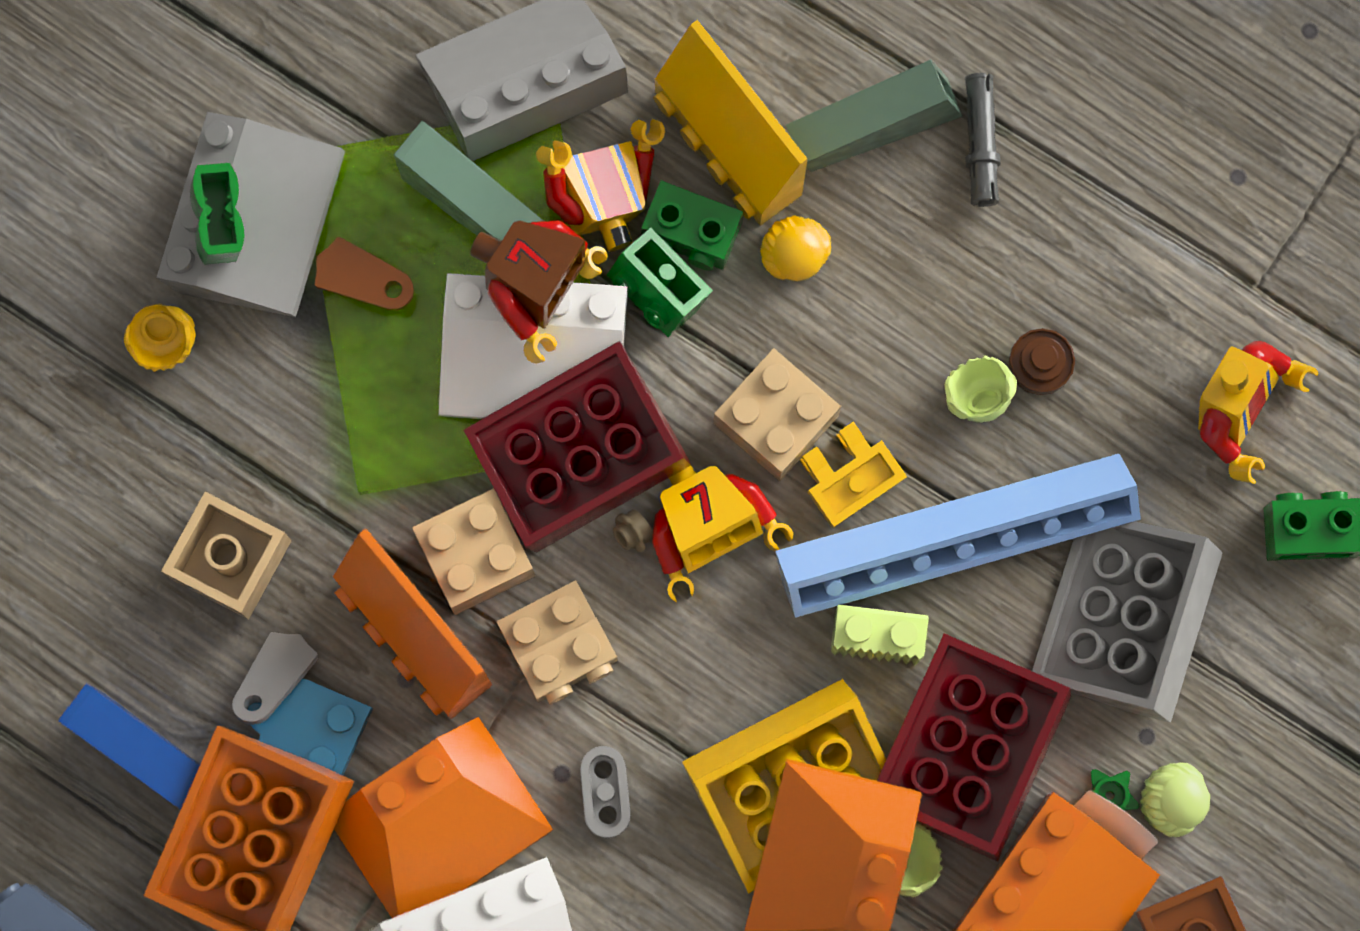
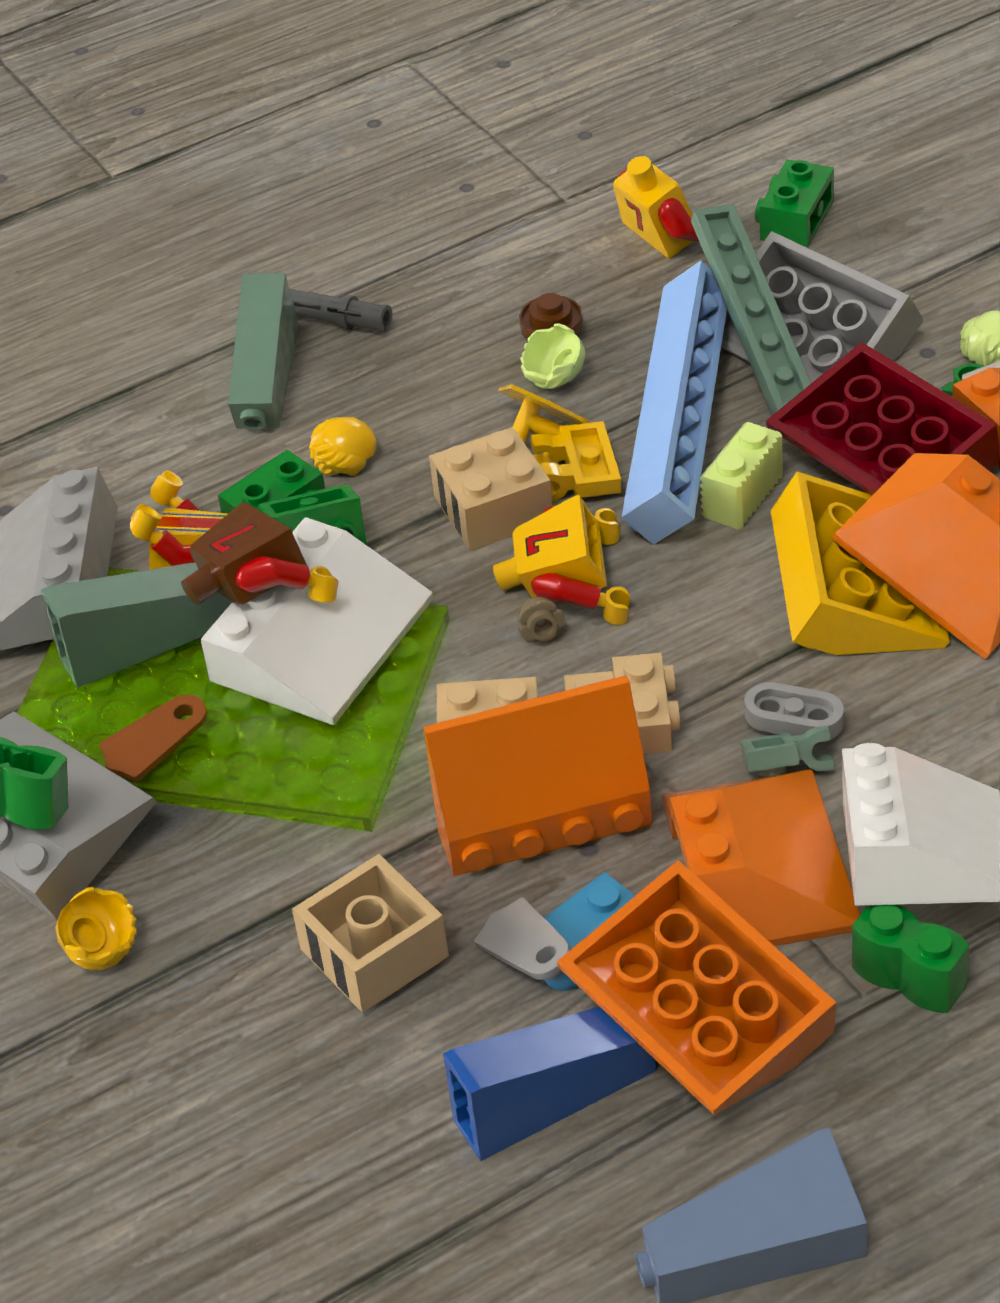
camera: 60 degrees left, 35 degrees down
(550, 795) = (774, 753): none -> sand green plate
(576, 447) = (432, 607): dark red slope -> none
(730, 126) = (199, 416): yellow slope -> none
(899, 412) = (527, 417): none -> yellow shield
(1099, 560) = (751, 304): none -> sand green plate

